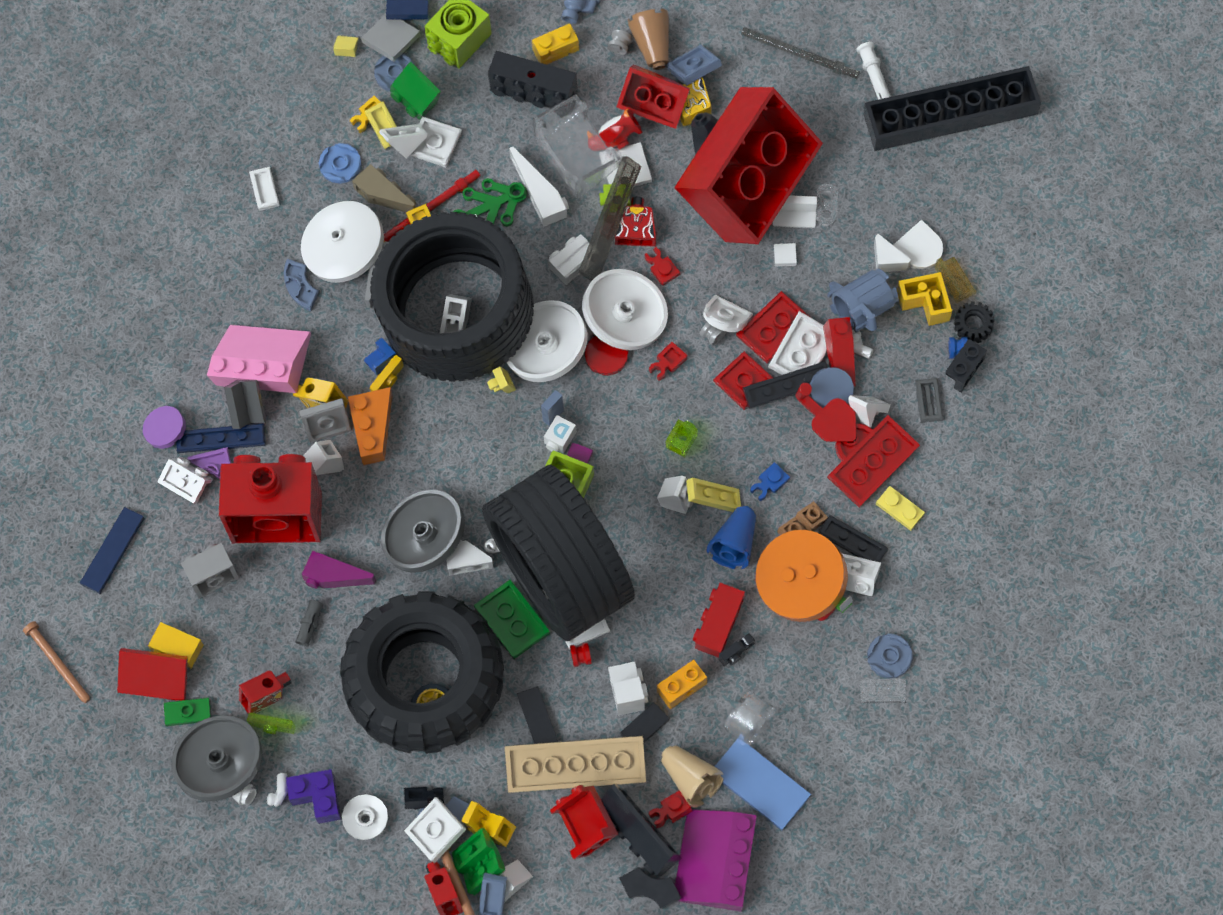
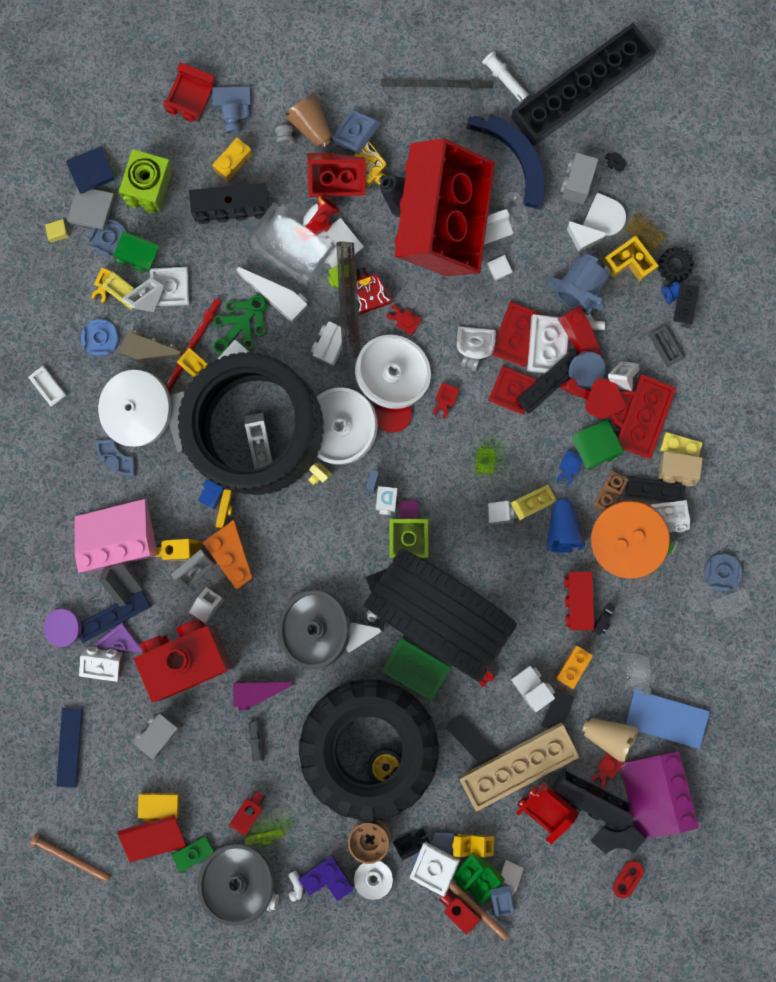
camera: 25 degrees left, 15 degrees up
(369, 764) = (368, 850): none -> medium nougat wheel
(810, 467) = (598, 444): none -> green slope
(857, 137) = (523, 151): none -> dark blue arch
(888, 527) = (680, 468): none -> tan brick
(906, 195) = (580, 172): none -> light grey brick
(954, 197) = (616, 161): none -> black plant

